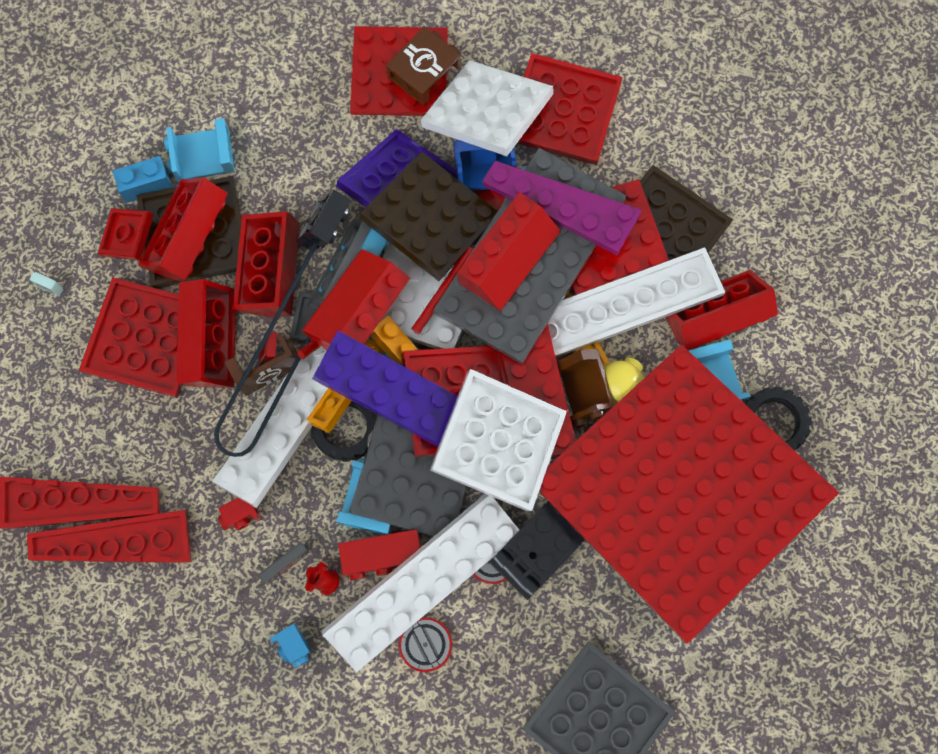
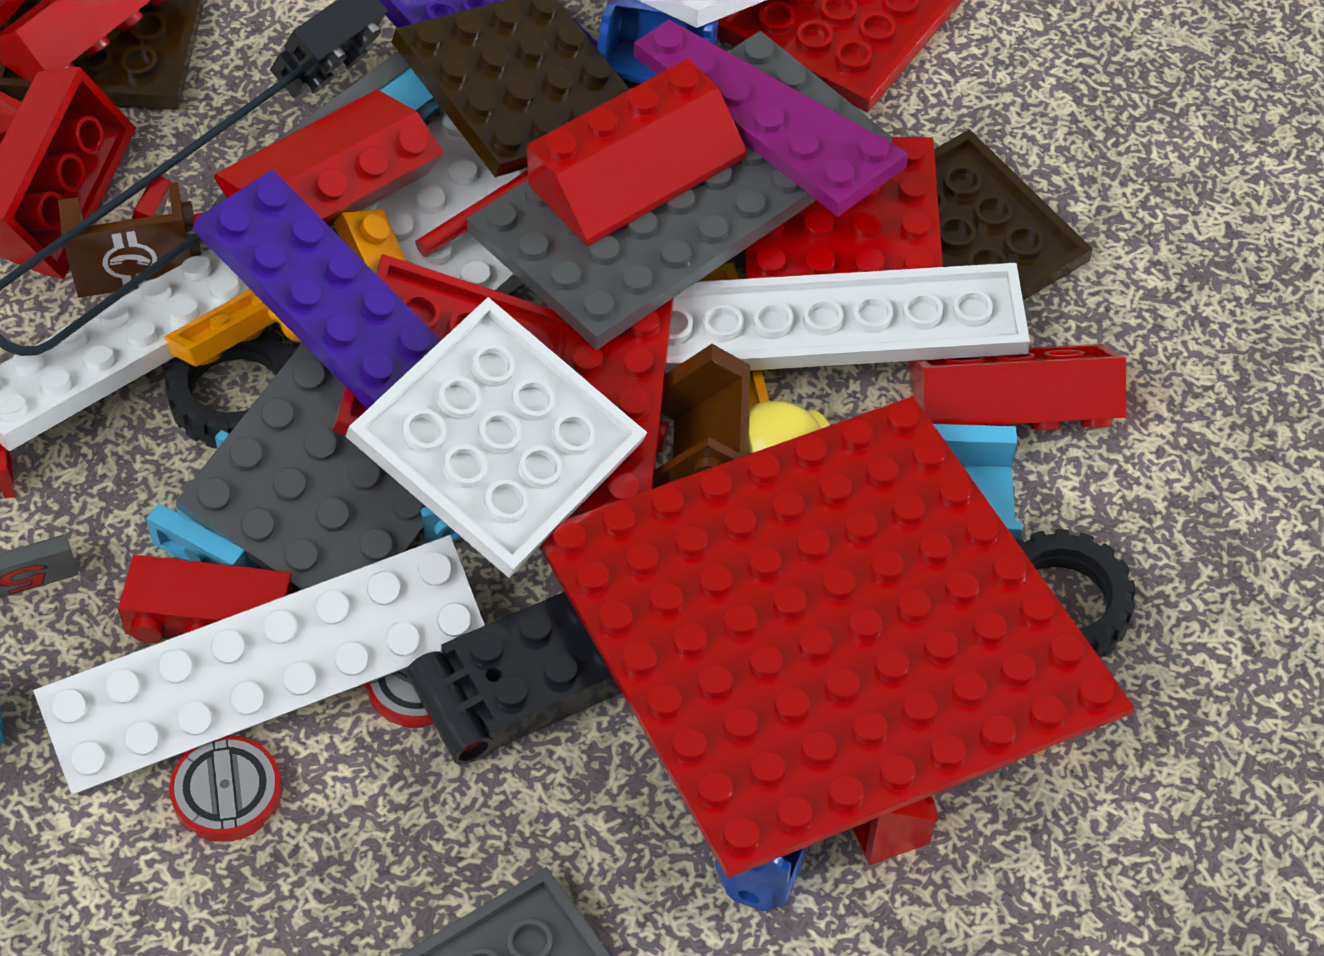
camera: 15 degrees right, 20 degrees down
(266, 263) = (204, 81): red slope -> none
(321, 579) = (78, 615): red brick -> none

